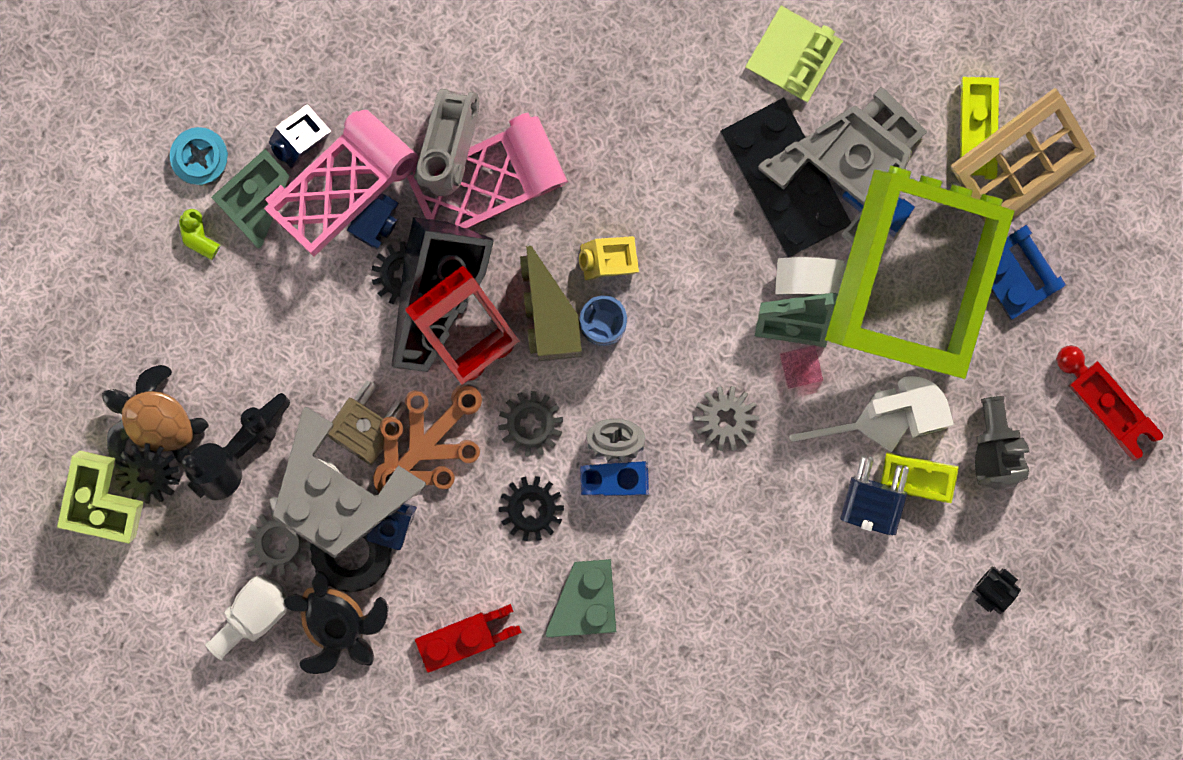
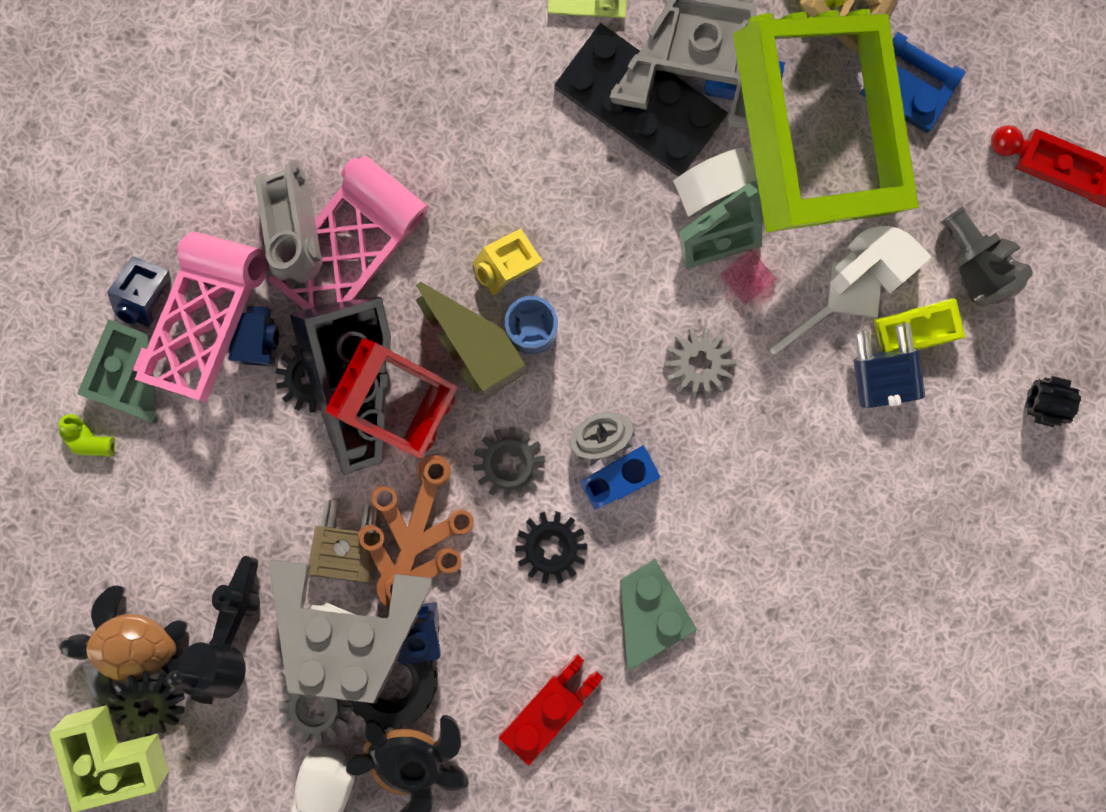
camera: 25 degrees left, 0 degrees up
(202, 139) = (31, 366): medium azure gear -> none

